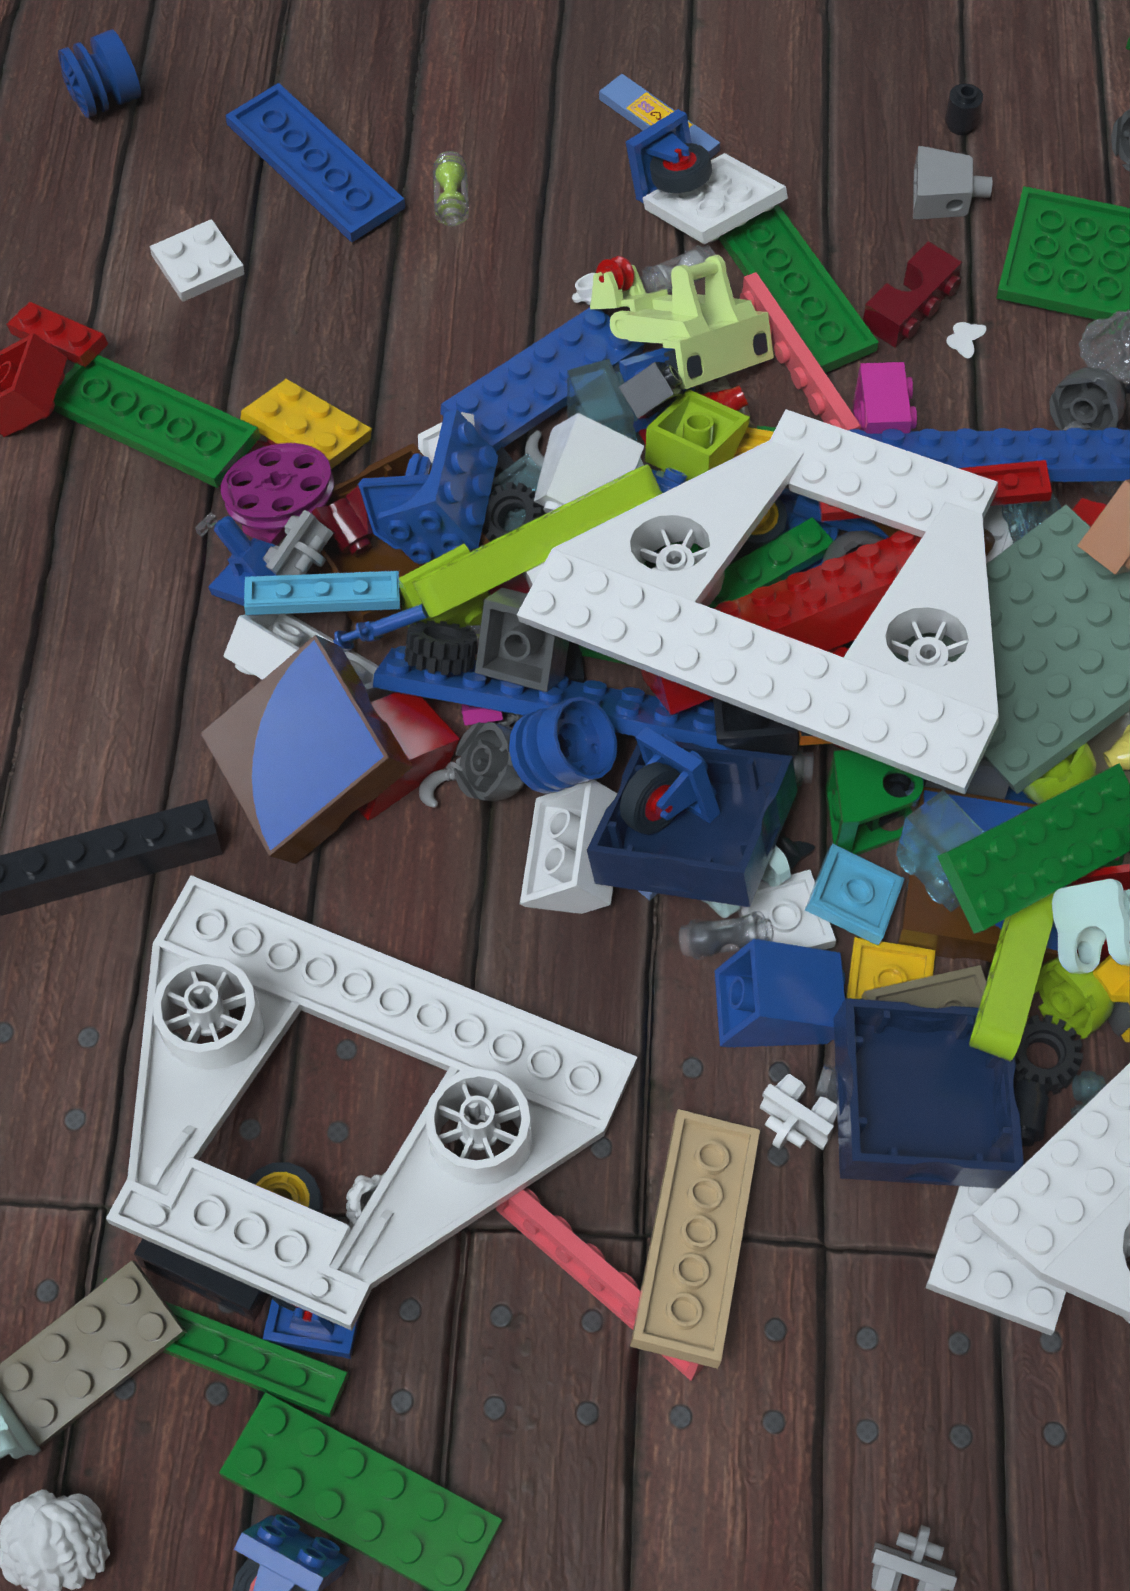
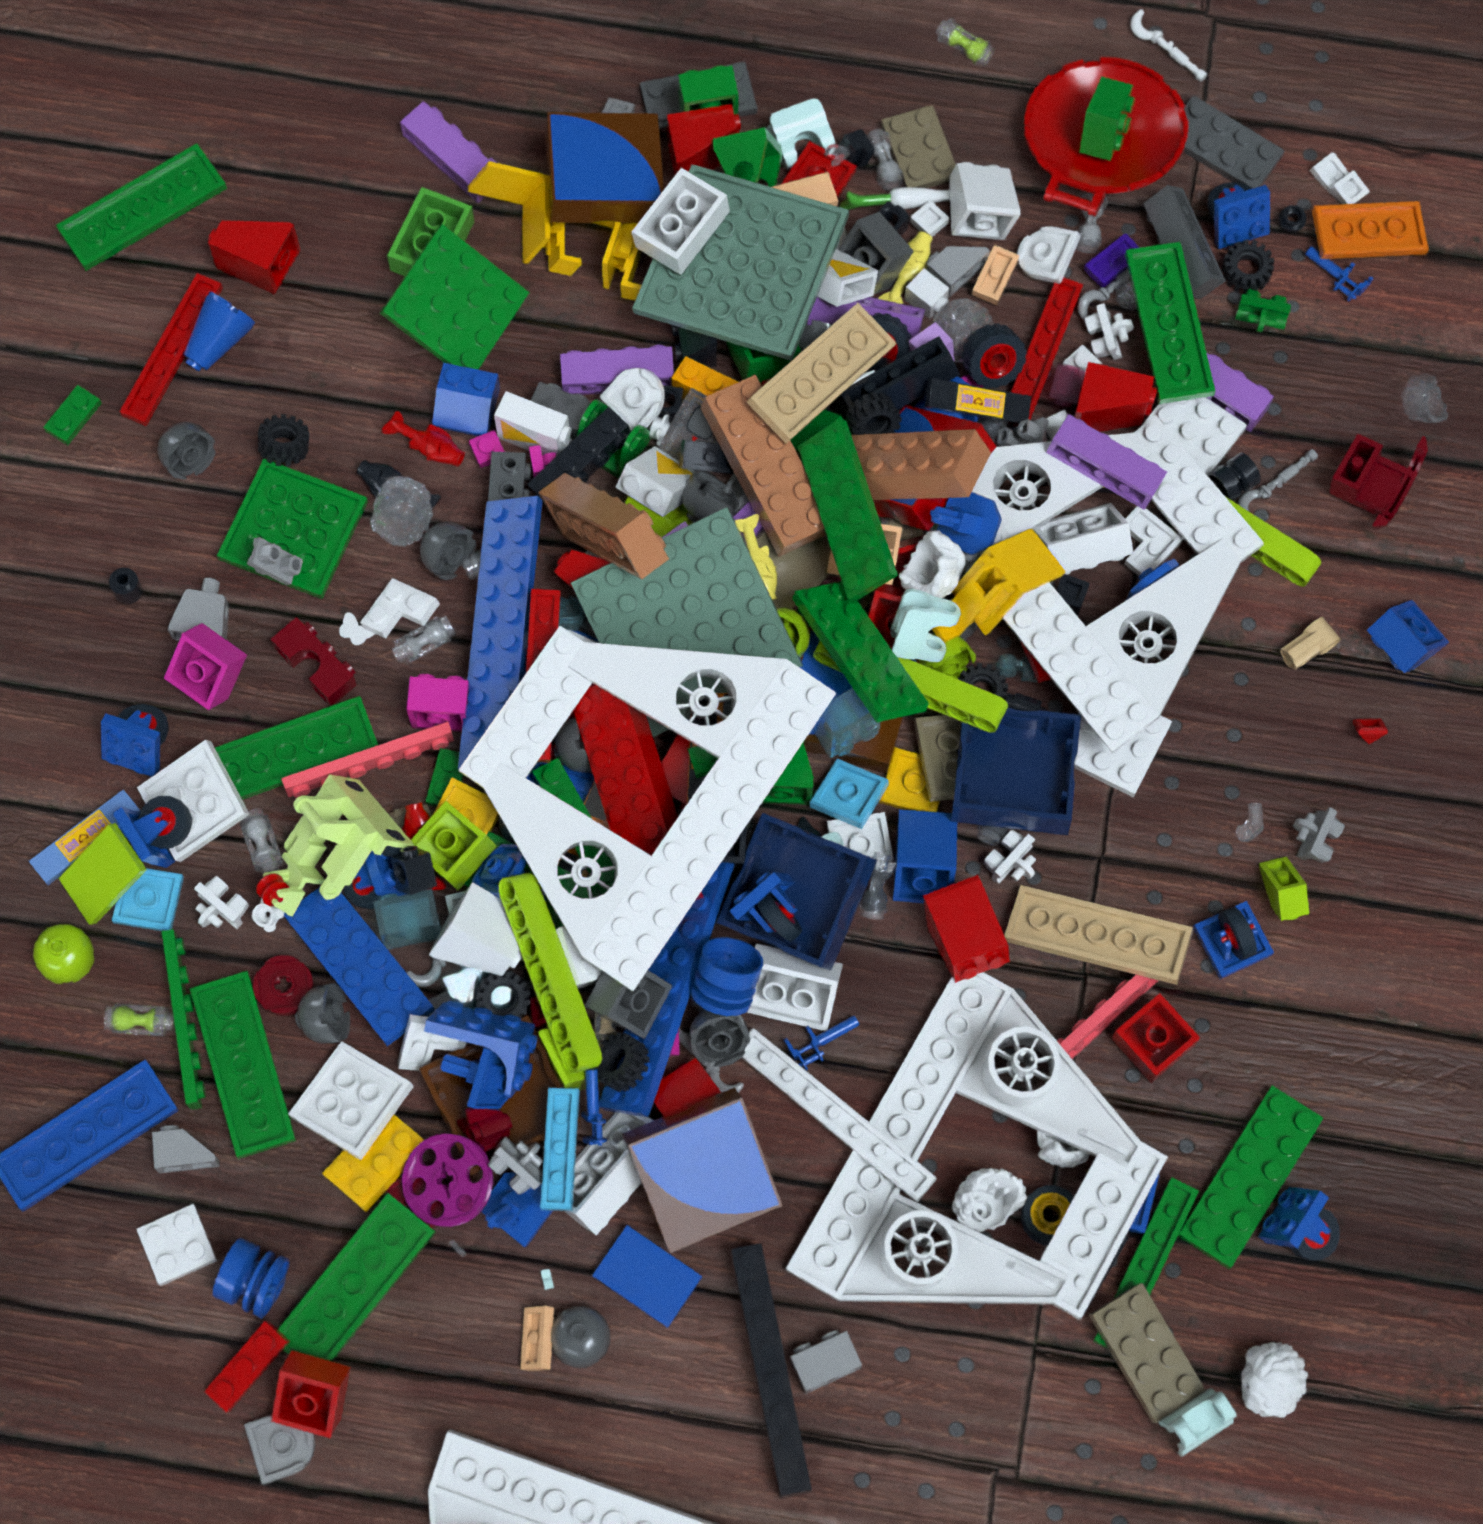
camera: 85 degrees left, 10 degrees up
(70, 935) = (825, 1361): none -> light grey brick
(80, 614) = (537, 1338): none -> light nougat plate
(100, 658) = (580, 1336): none -> dark grey cylinder
(153, 315) = (256, 1280): none -> blue wheel
(168, 730) = (647, 1276): none -> blue tile
(172, 622) = (547, 1279): none -> light aqua piece
(302, 243) = (178, 1151): none -> light grey slope
(307, 1106) = (988, 1199): none -> white hair
(371, 389) = (351, 1100): none -> white plate
(397, 919) = (837, 1117): none -> white tile
(408, 289) = (242, 1065): none -> green plate
(455, 226) = (185, 1031): none -> green plate
(472, 350) = (322, 1014): none -> dark grey cylinder
(504, 892) = (820, 1040): none -> blue piece
(512, 332) = (270, 975): none -> dark red plate
(520, 116) = (63, 953): none -> lime cylinder
(551, 1331) = (1155, 1038): none -> red brick
(591, 240) = (211, 894): none -> white hips
(595, 185) = (150, 901): none -> medium azure tile
(612, 126) = (102, 873): none -> lime tile
(677, 1048) = (965, 929): none -> red slope
(722, 1446) = (1233, 940): none -> blue plate
(783, 137) = (134, 738): none -> blue plate
(815, 1519) = (1285, 888): none -> lime slope
(879, 183) = (205, 666): none -> dark pink brick
(909, 1467) = (1253, 825): none -> clear arm
(975, 408) = (435, 633): none -> clear piece
(1008, 368) = (398, 601): none -> white plate
(1025, 224) = (273, 561): none -> light grey hips

